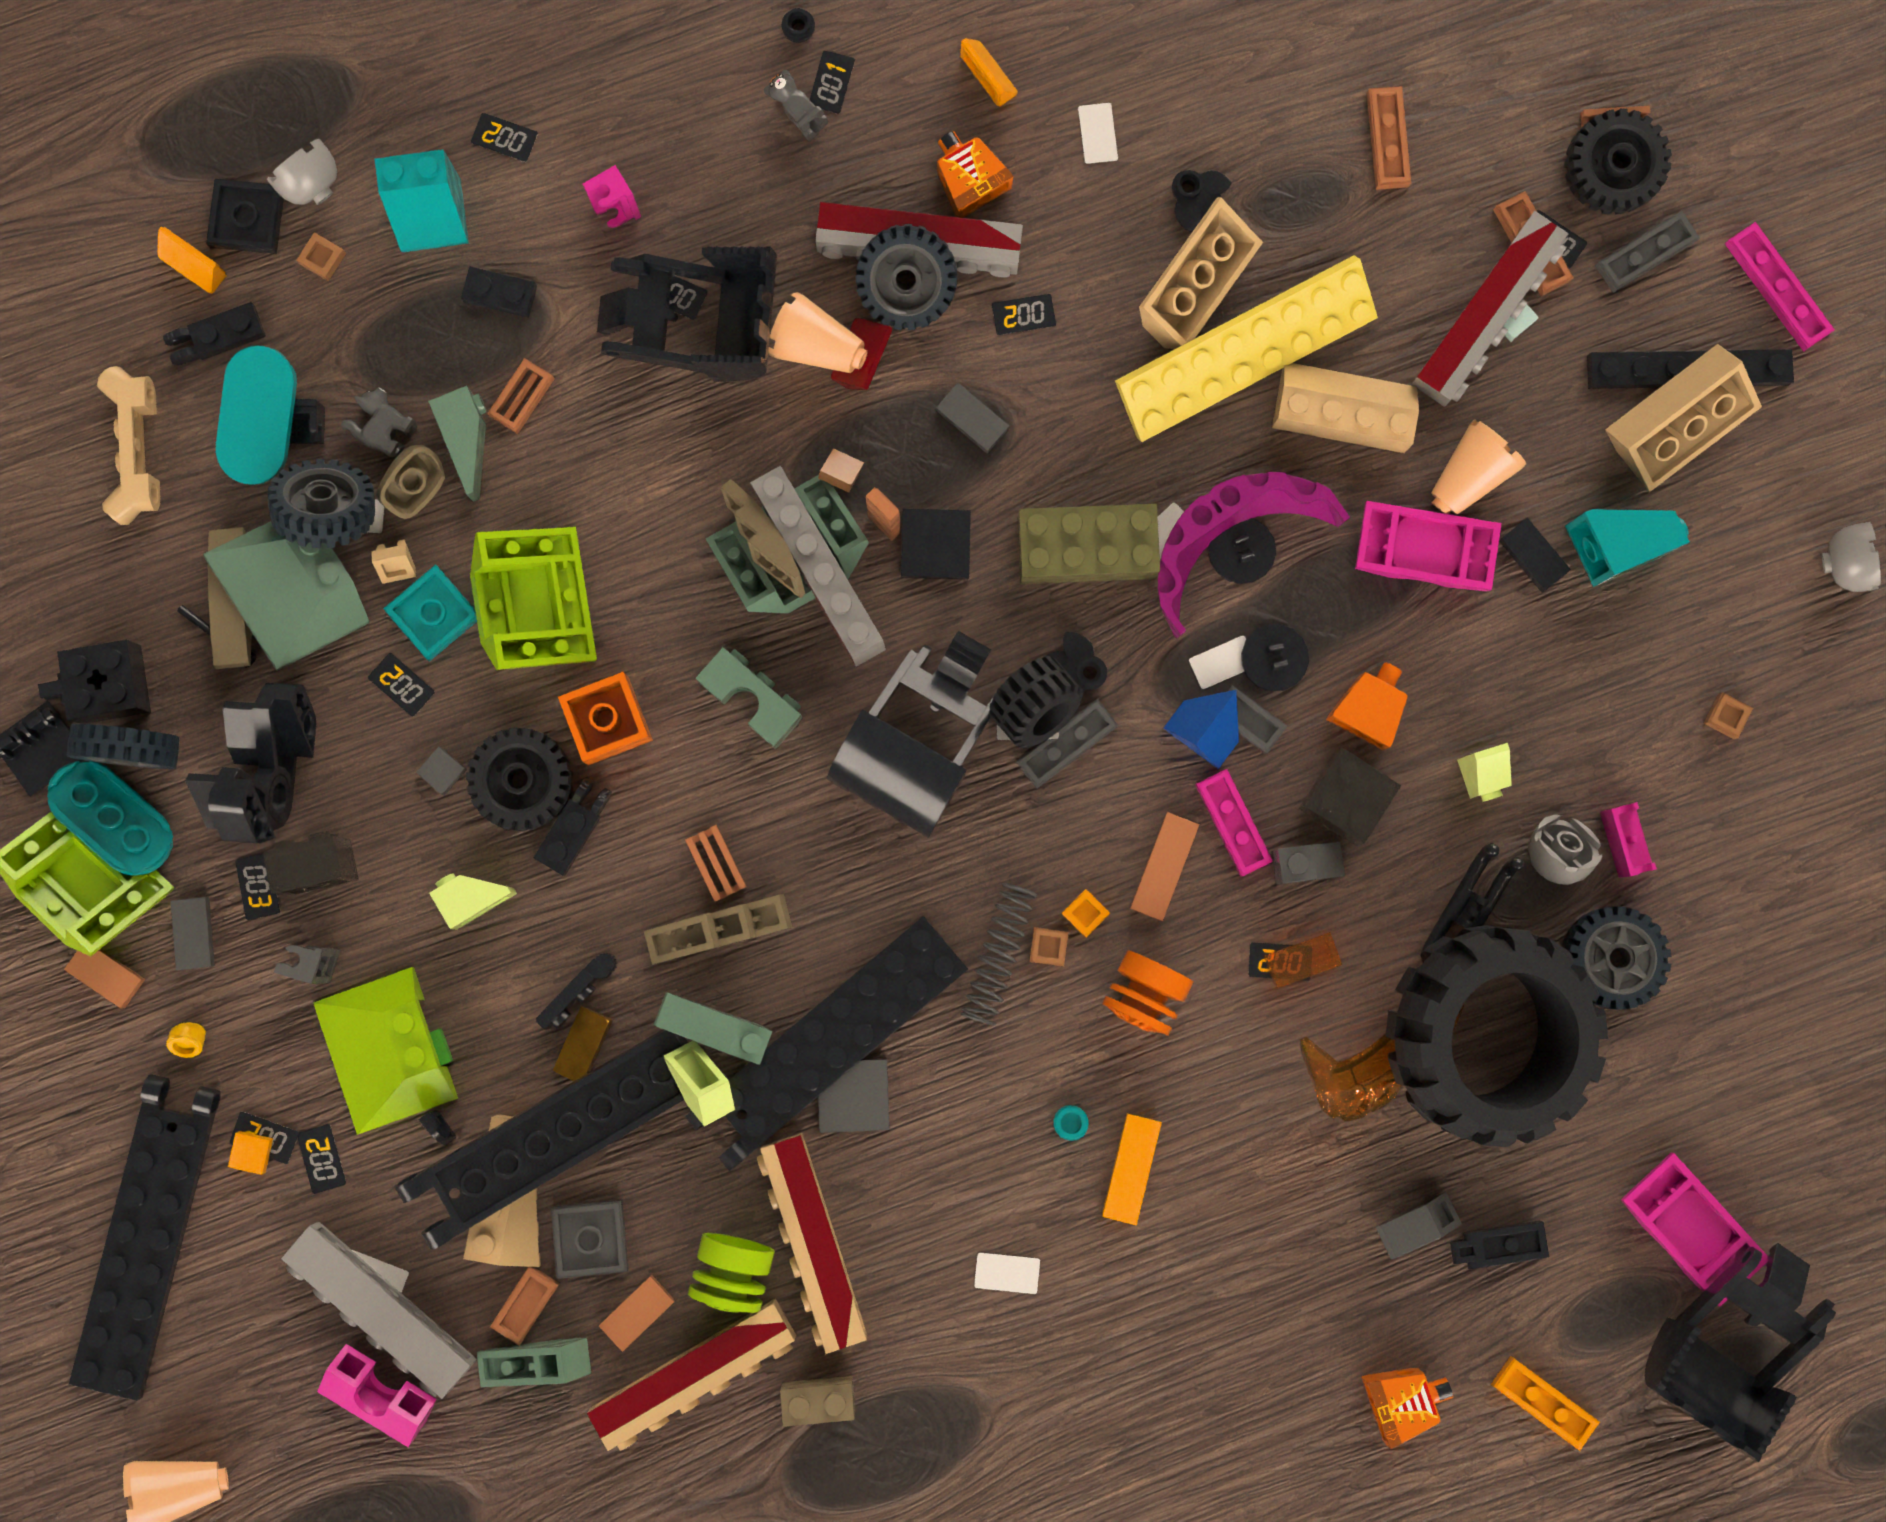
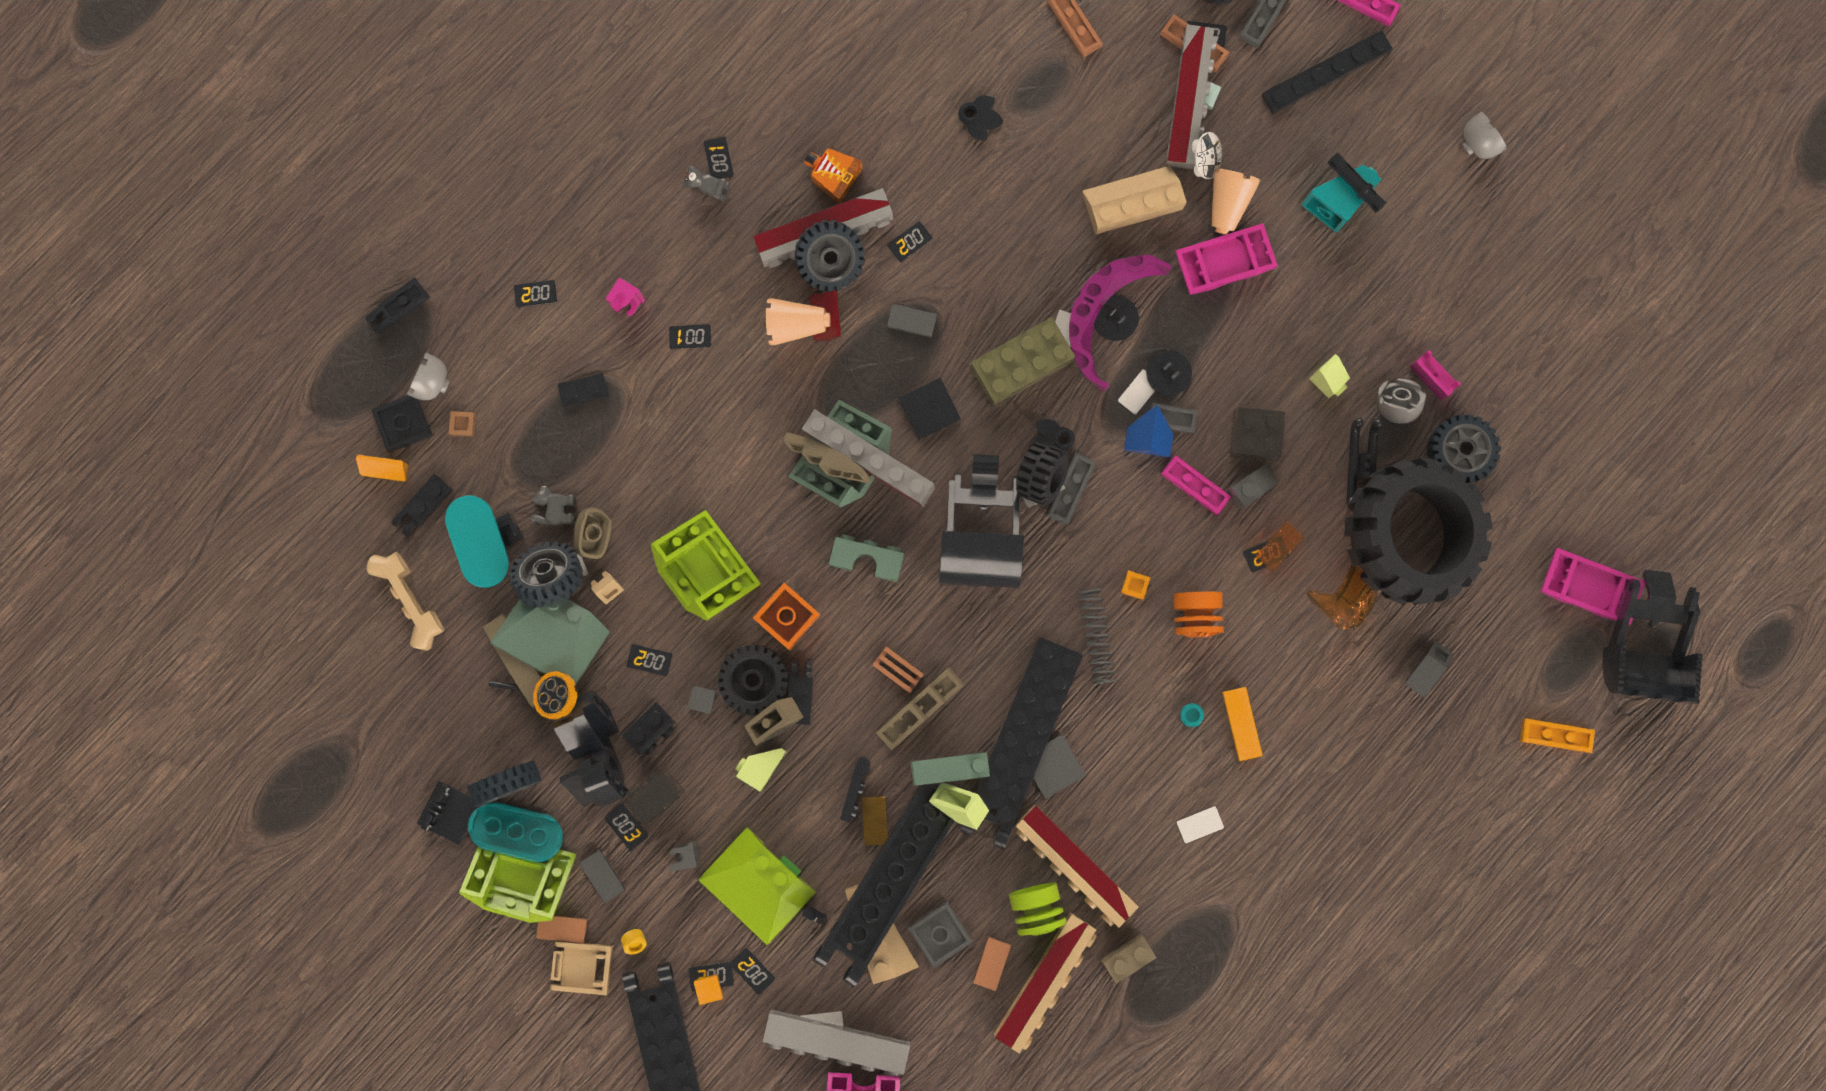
camera: 25 degrees left, 0 degrees up
(82, 687) = (453, 757): black hinge -> none
(97, 1037) = (578, 966): none -> tan container
(248, 665) = (555, 695): none -> tile
(319, 63) = (398, 305): none -> black hinge
(353, 773) = (649, 729): none -> black bracket
(422, 200) = (509, 358): teal slope -> none
(432, 613) = (645, 606): teal tile -> none
(464, 433) = (606, 485): sand green slope -> none
(515, 846) = (773, 721): none -> dark tan brick
(524, 1305) = (922, 994): nougat tile -> none
(532, 402) = (628, 467): nougat tile -> none
(534, 1363) = (946, 1025): sand green slope -> none
(743, 315) = (742, 331): black piece -> none
(795, 16) = (680, 127): black plate -> none
(841, 470) = (849, 393): tile -> none
(883, 513) = (891, 406): nougat tile -> none
(987, 71) = (811, 104): light orange slope -> none
(1048, 946) = (1123, 616): medium nougat tile -> none
(1098, 133) = (897, 108): white sticker -> none
(1164, 866) = (1168, 532): nougat tile -> none
(1199, 276) = (1007, 166): tan slope -> none
(1247, 348) = (1056, 194): light yellow plate -> none
(1372, 707) = (1243, 373): orange torso -> none
(1405, 1403) = (1475, 778): torso -> none
(1473, 396) = (1207, 155): none -> white dish
(1501, 1245) = (1483, 655): black hinge -> none
(1534, 555) = (1292, 232): black tile -> none
(1655, 537) = (1357, 183): none -> black pin
(1684, 416) = (1339, 103): tan slope -> none
(1728, 715) = (1456, 269): medium nougat tile -> none

